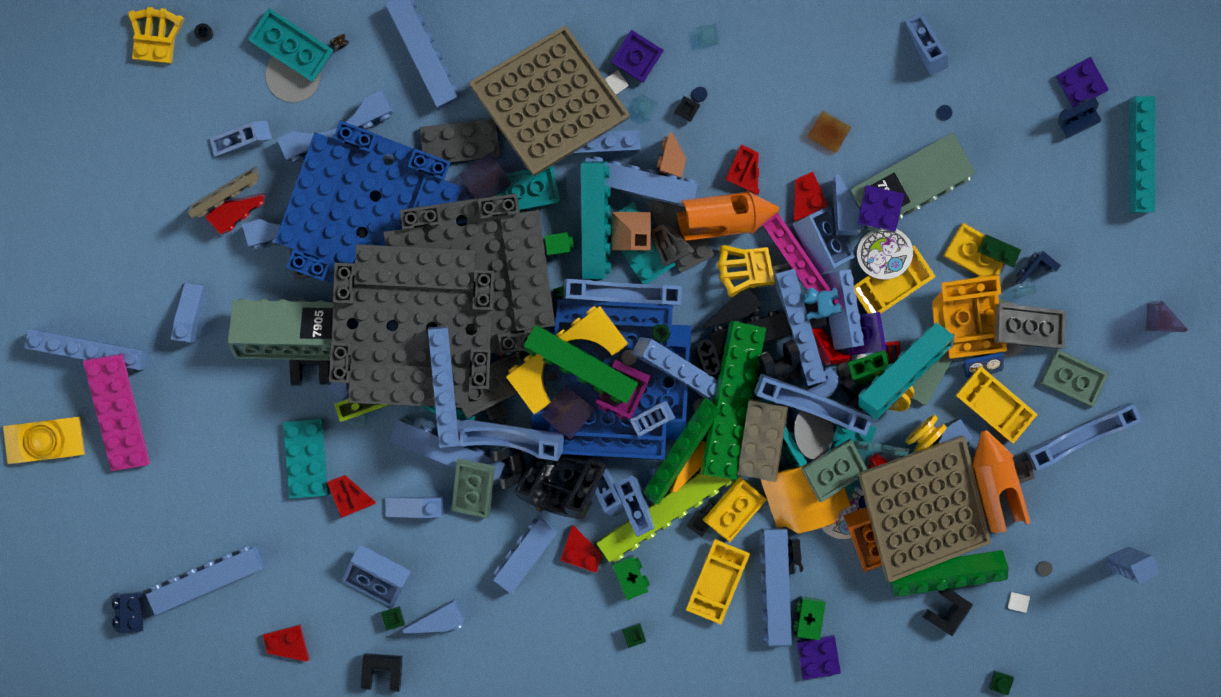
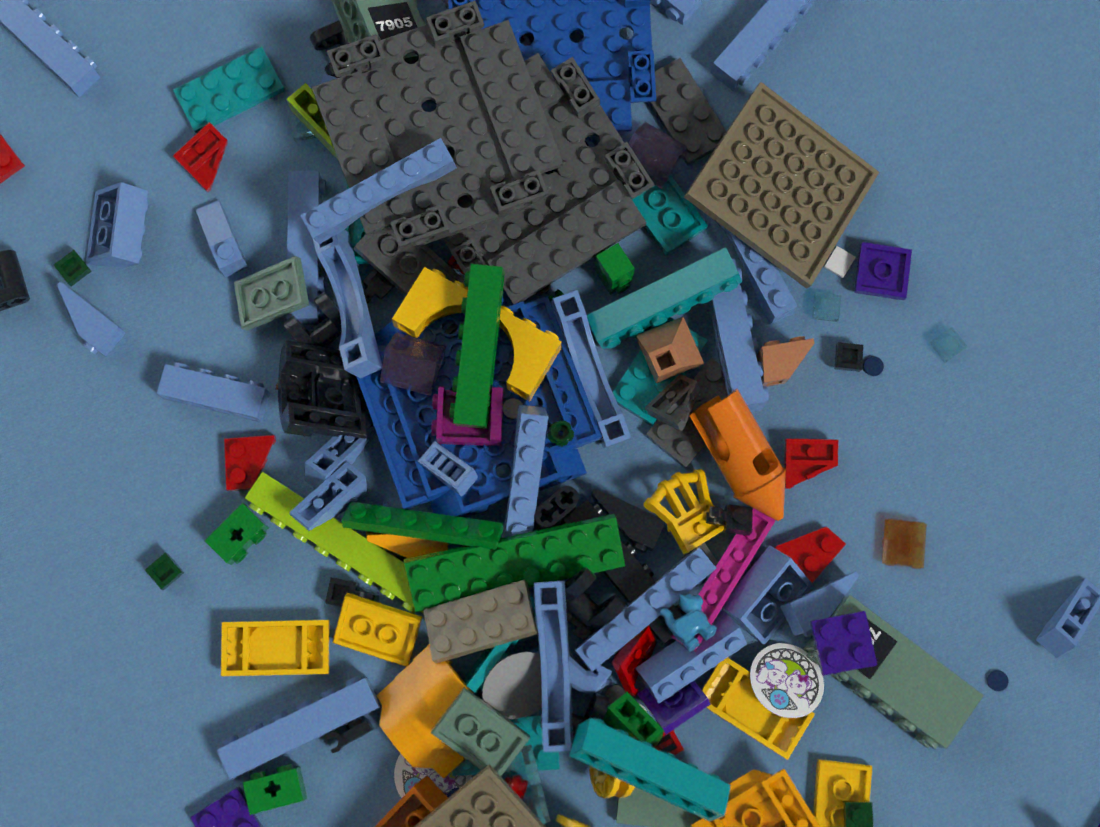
camera: 65 degrees right, 10 degrees down
(765, 240) = (733, 517): none -> black plate

